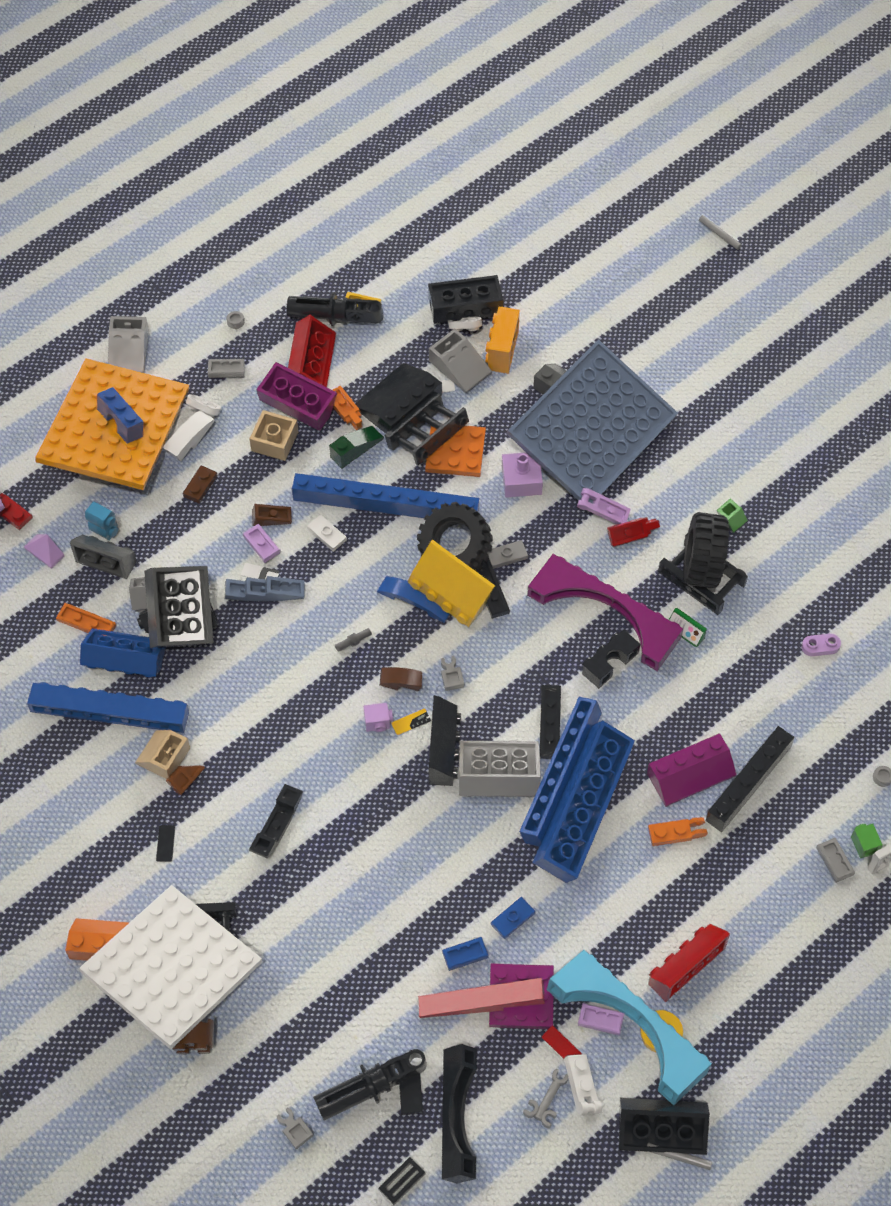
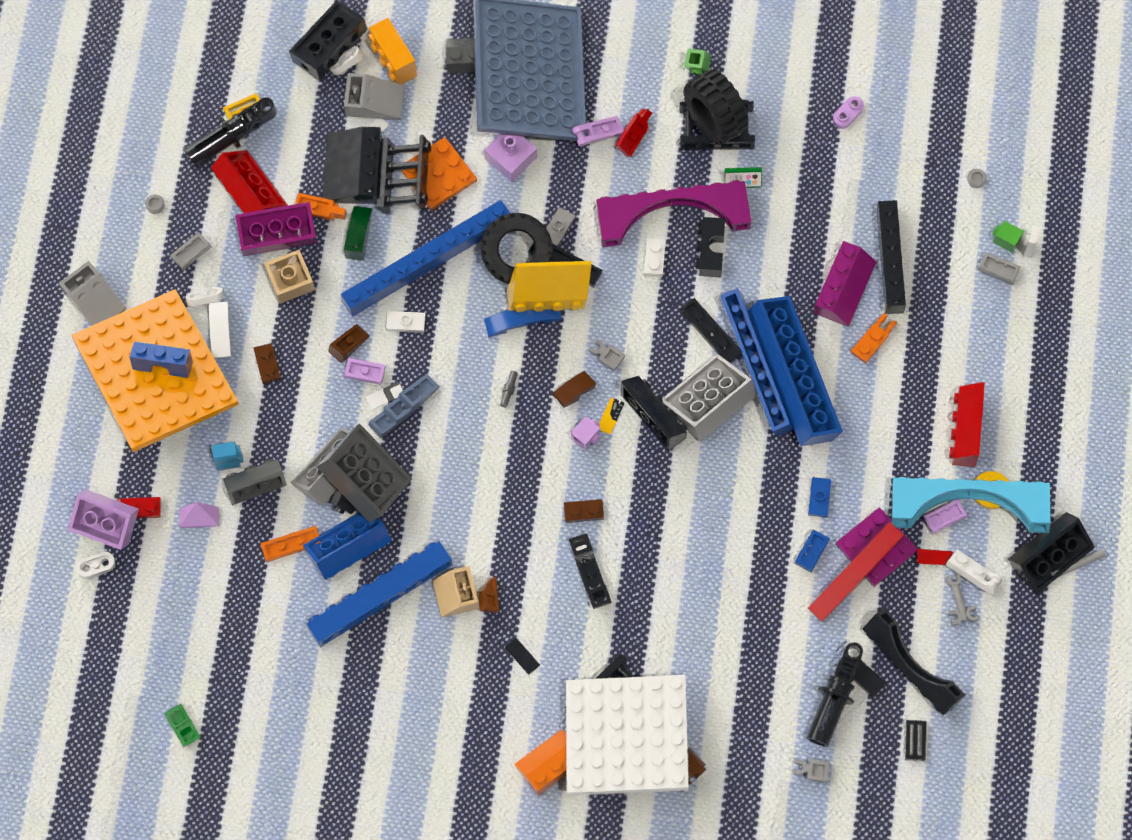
camera: 40 degrees left, 10 degrees up
(319, 774) = (583, 511): none -> reddish brown plate
(559, 633) = (654, 257): none -> white plate

